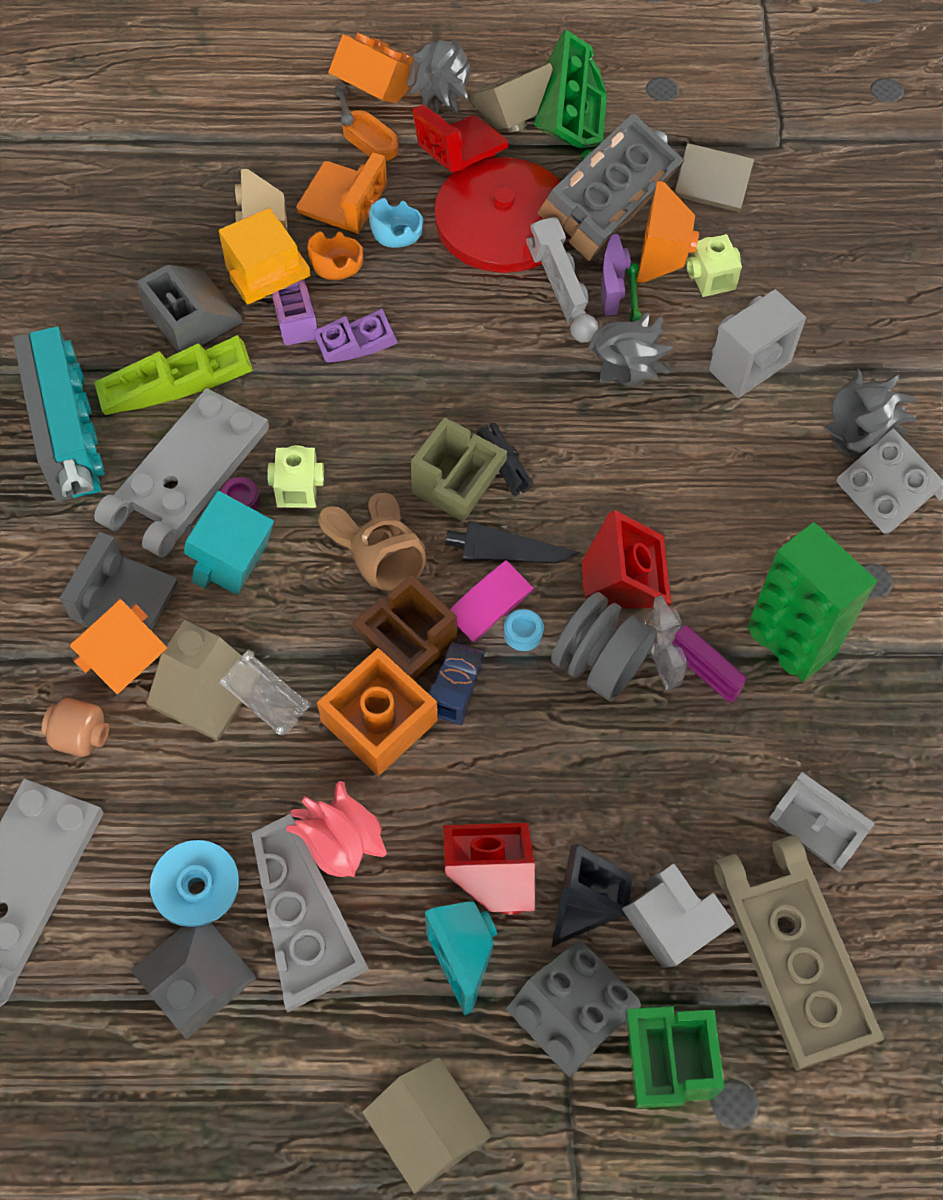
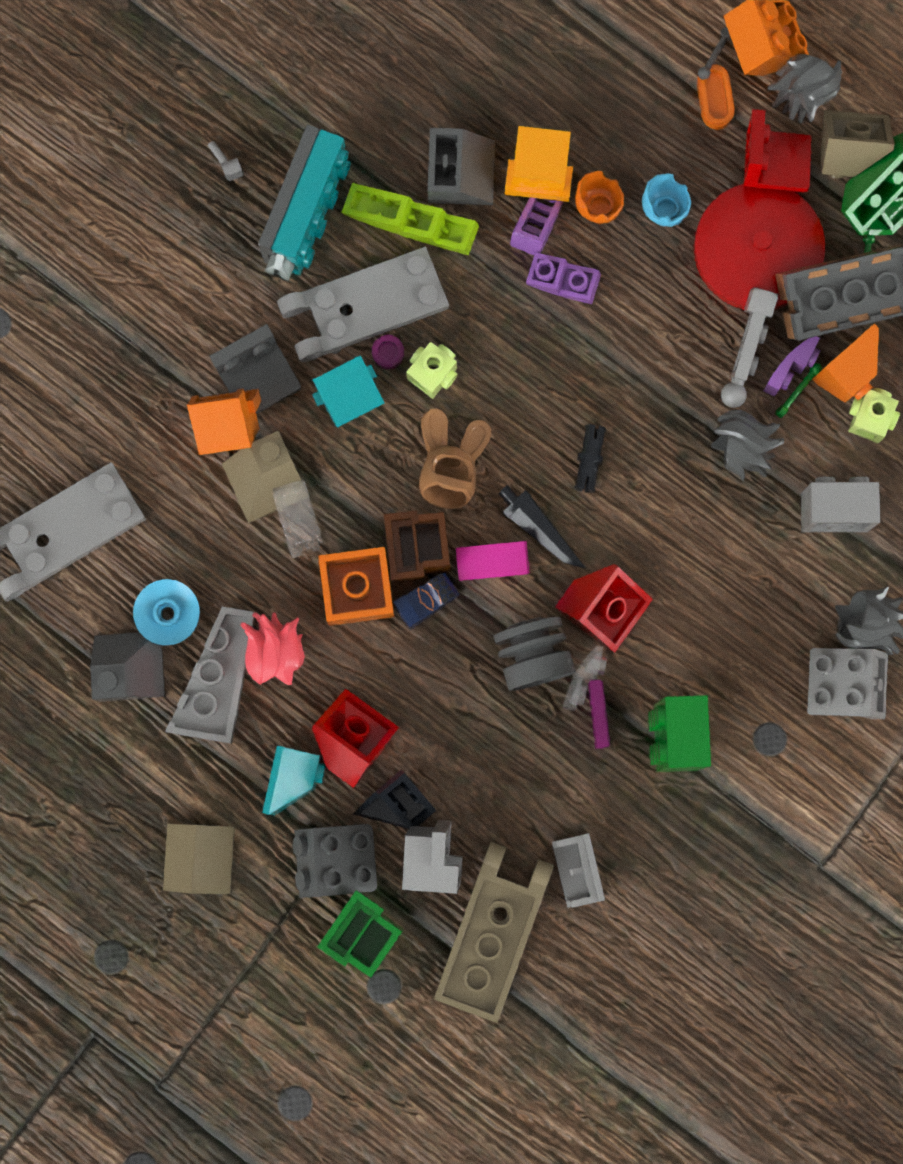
camera: 45 degrees right, 20 degrees up
(75, 727) = (164, 450): nougat head -> none
(258, 195) = (575, 113): tan slope -> none
(343, 194) = (649, 142): orange bracket -> none
(454, 469) = (544, 447): olive plate -> none
(523, 630) = (501, 595): medium azure tile -> none

